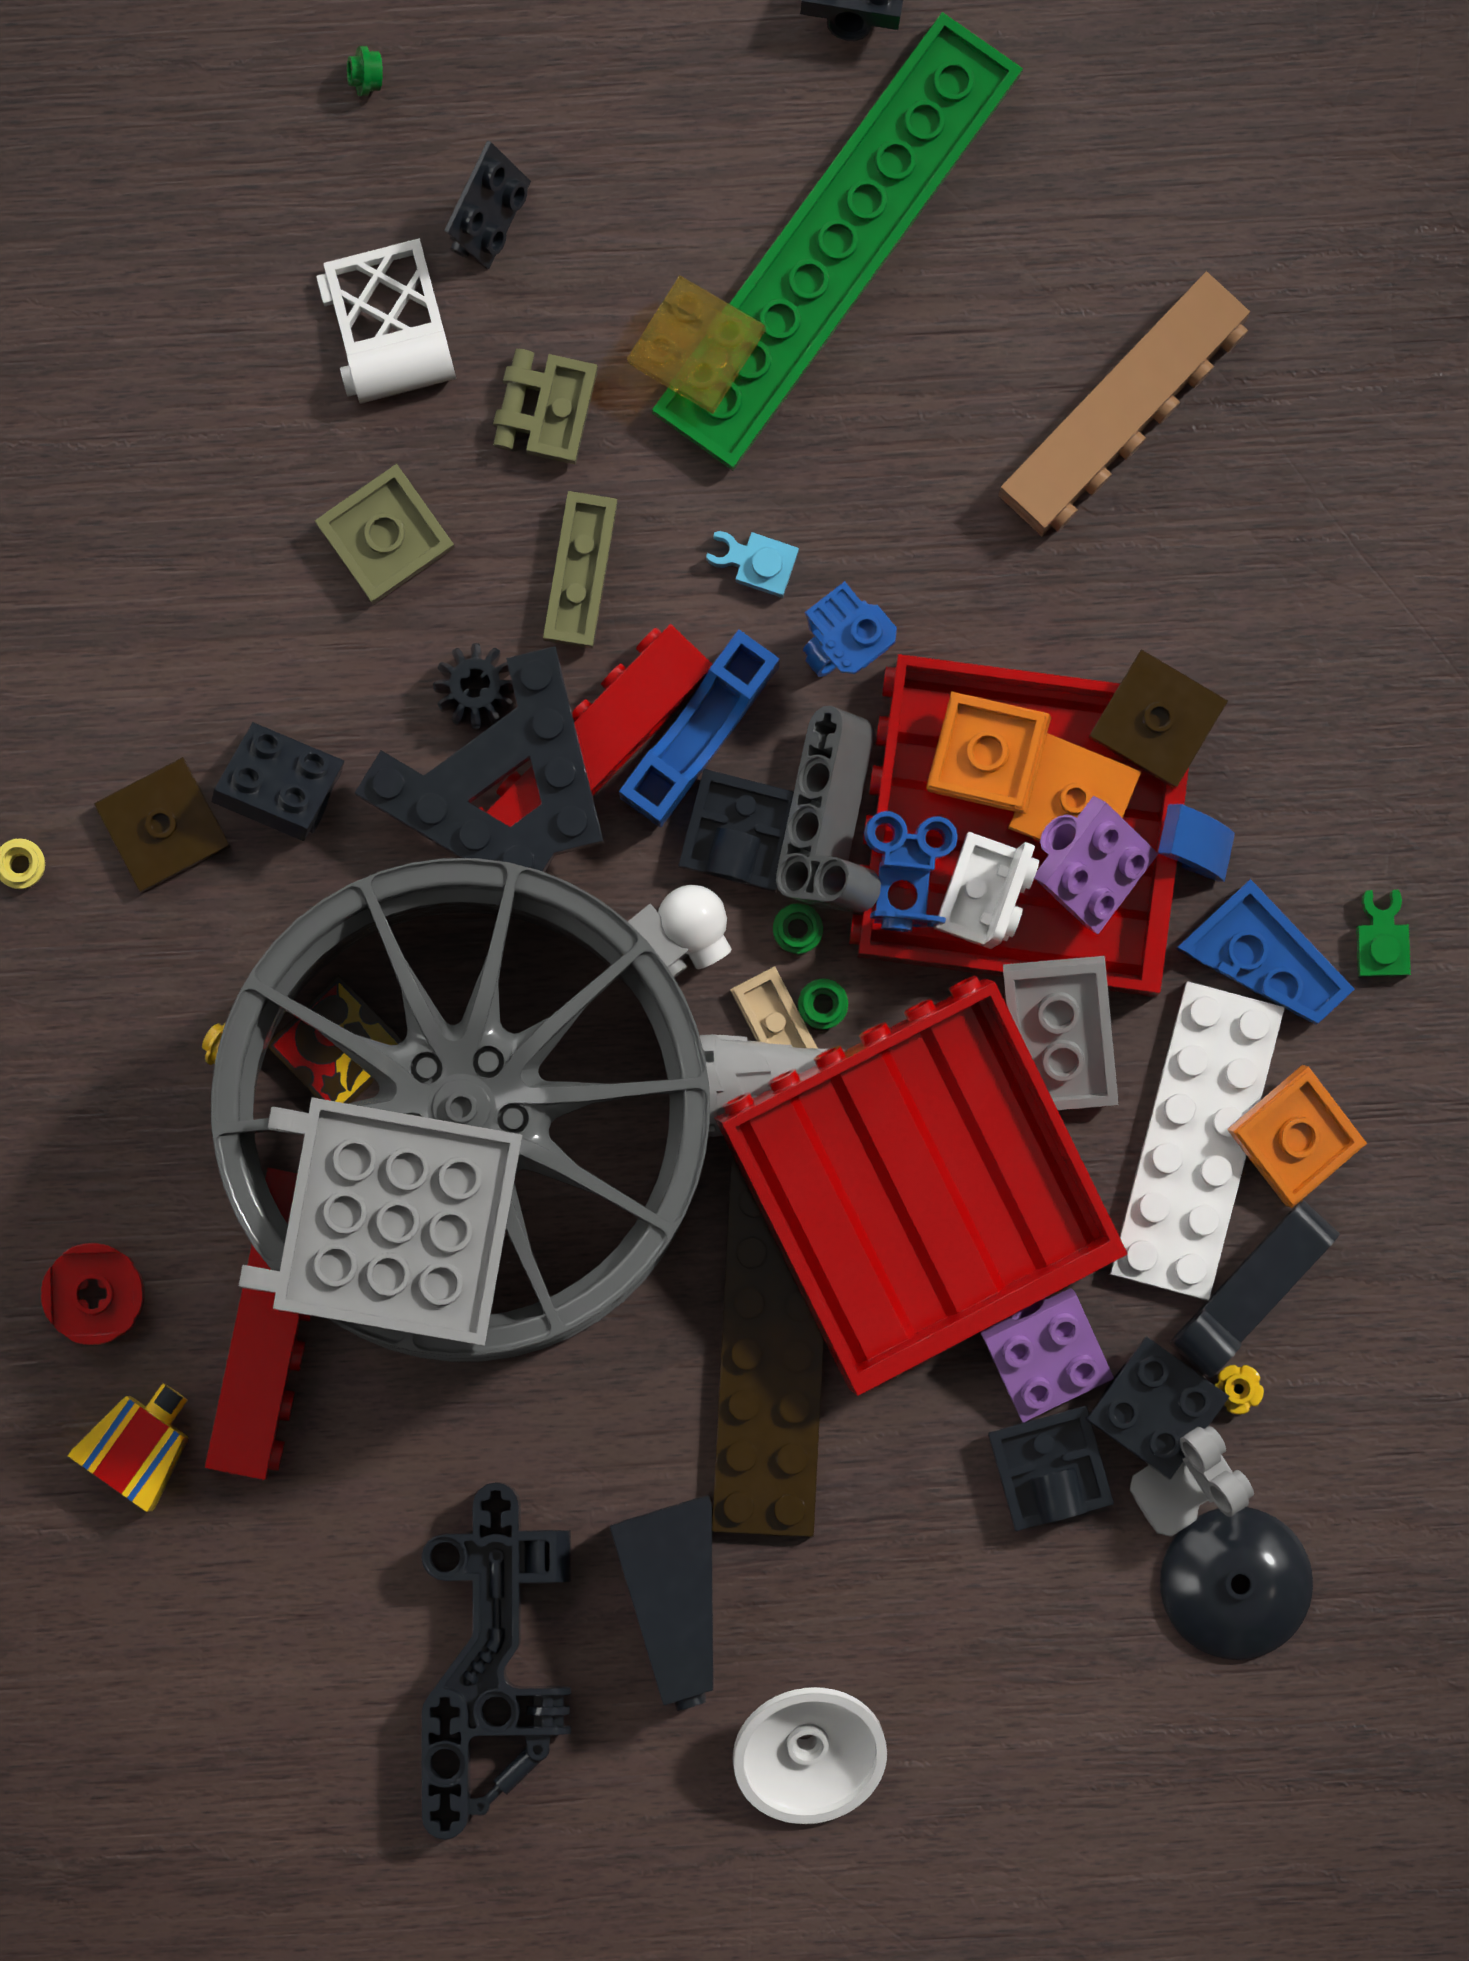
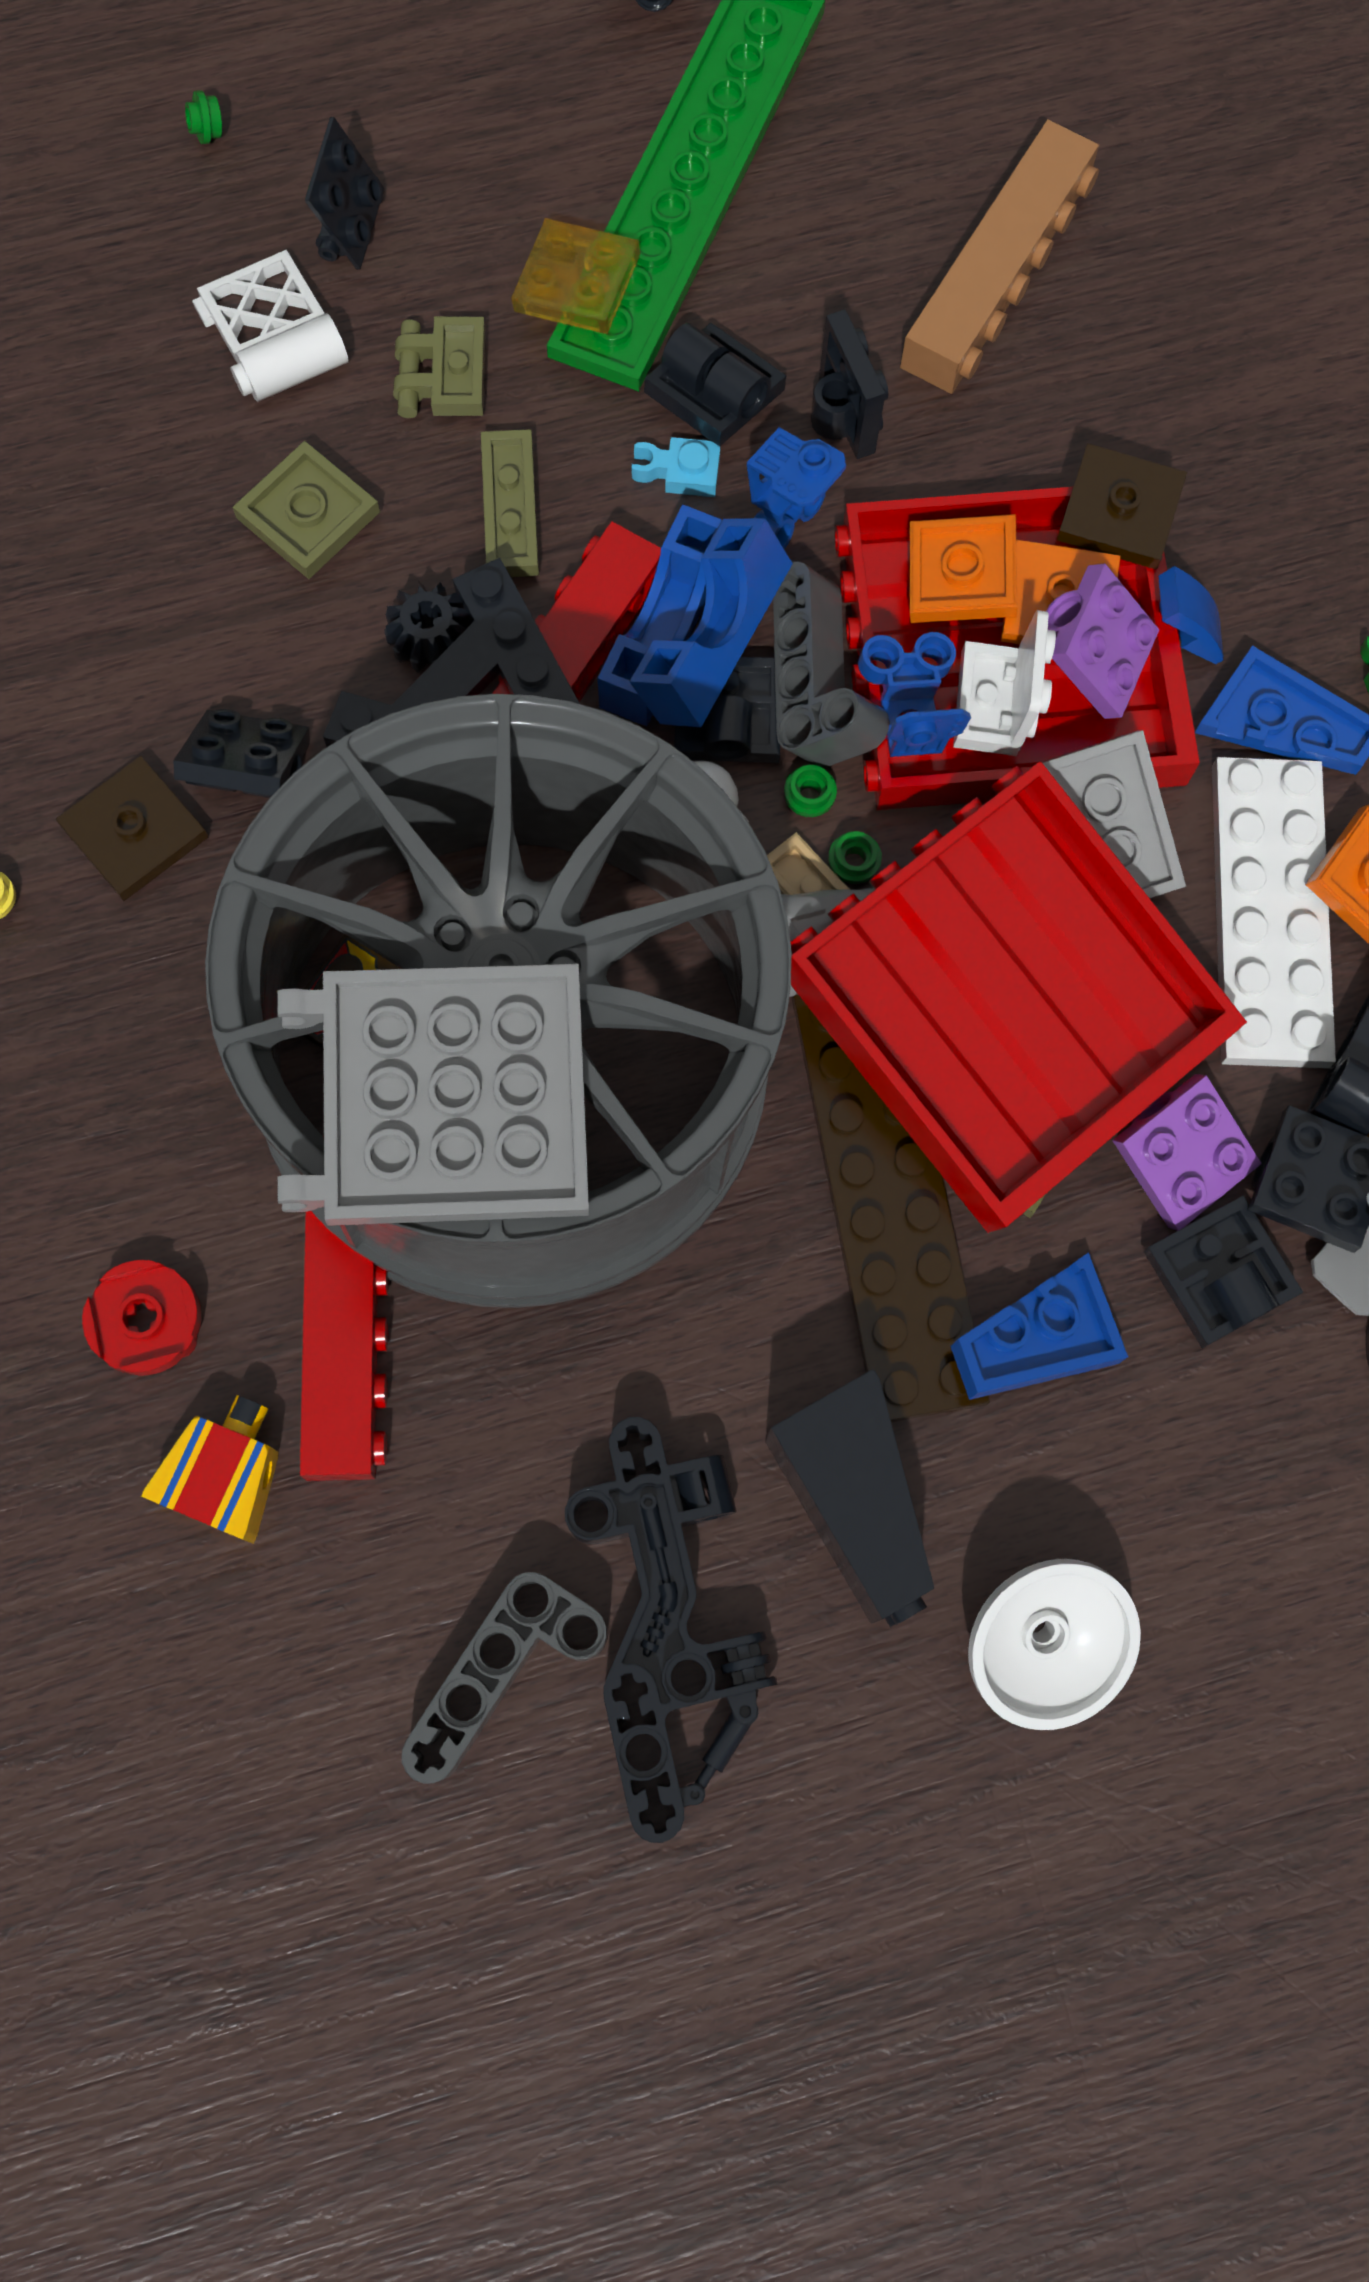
camera: 15 degrees left, 10 degrees down
(333, 1677) = (492, 1682): none -> dark grey beam
(776, 719) = (742, 577): none -> blue arch
(806, 485) = (712, 381): none -> black plate
(874, 1490) = (1043, 1336): none -> blue wing
(933, 511) = (850, 382): none -> black plate

